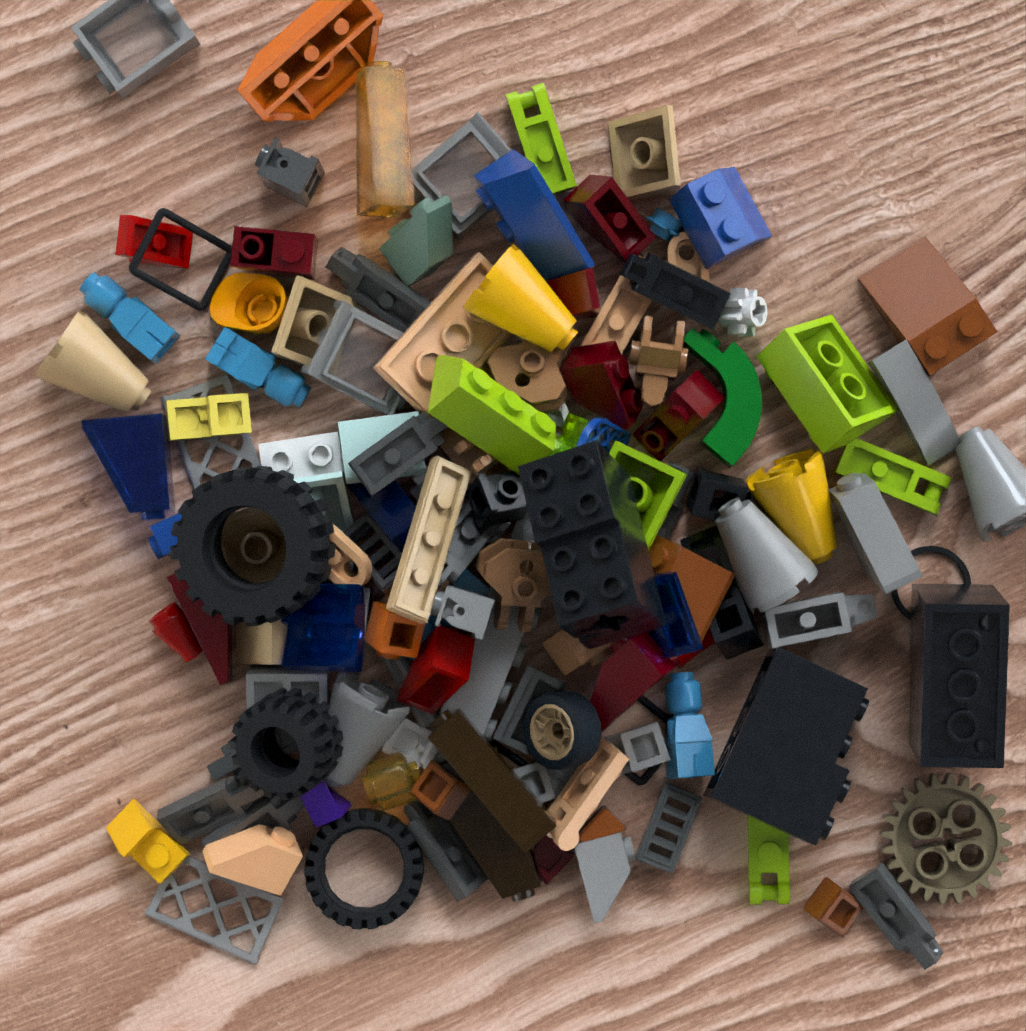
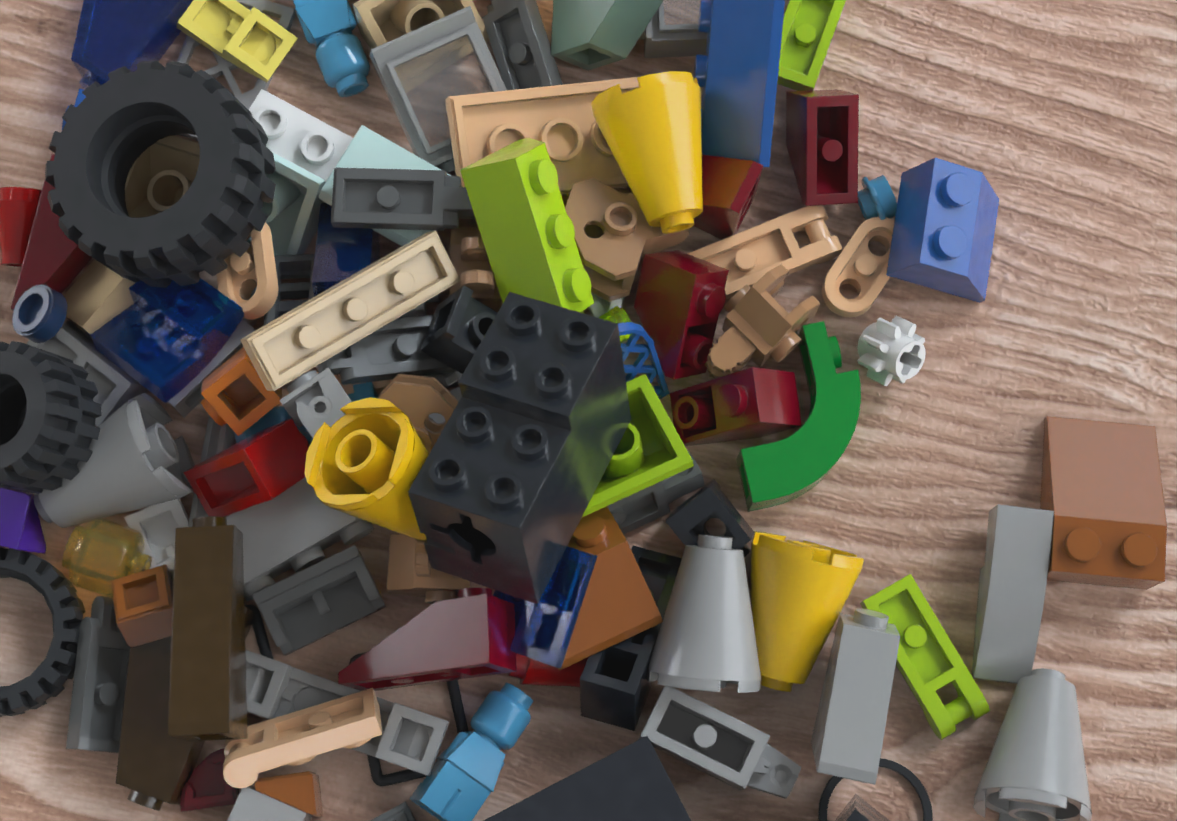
camera: 30 degrees right, 10 degrees down
(242, 676) = (39, 313): none -> dark blue tile
(516, 623) = (368, 465): none -> yellow cone
(562, 730) = (334, 644): black wheel -> none
(645, 153) = (913, 110): tan slope -> none
(676, 288) = (838, 268): black hinge -> none
(826, 382) = (926, 494): lime slope -> none

